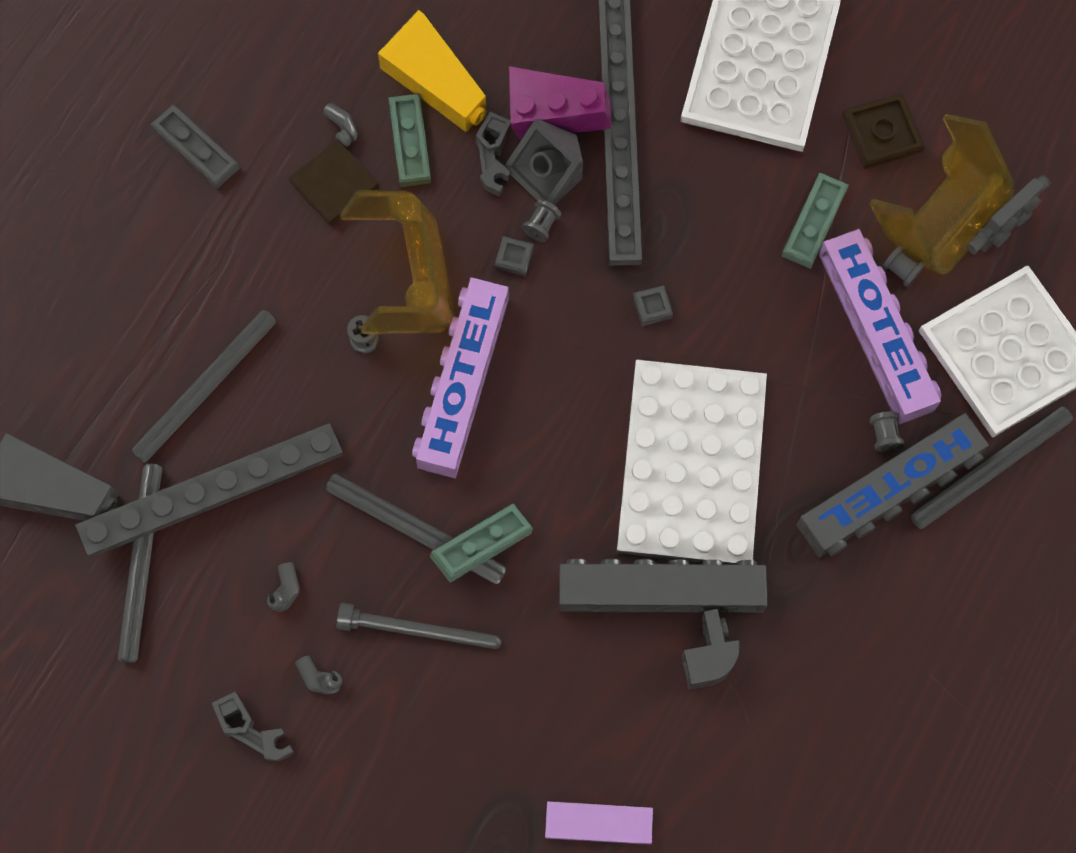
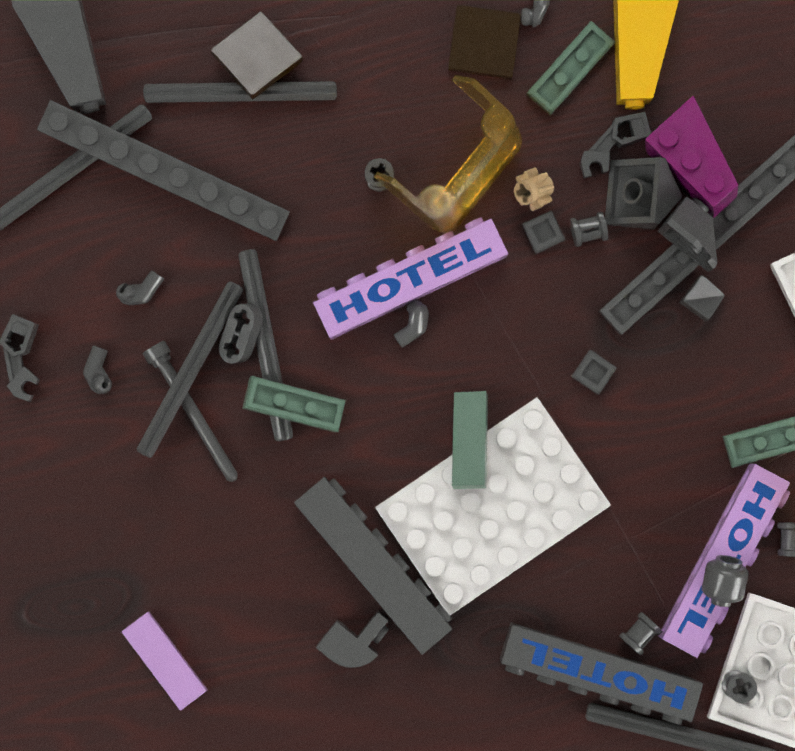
camera: 45 degrees right, 15 degrees up
(189, 348) = (256, 55): none -> tile
(382, 540) = (240, 333): none -> dark grey beam
(383, 601) = (189, 370): none -> dark grey axle
(478, 225) = (533, 189): none -> tan gear
(501, 401) = (416, 323): none -> dark grey arm
(611, 147) = (692, 232): none -> dark grey slope
(627, 432) = (470, 440): none -> sand green tile
(664, 185) = (702, 298): none -> dark grey slope
(897, 328) = (725, 580): none -> dark grey head
(998, 385) = (749, 689): none -> dark grey bush

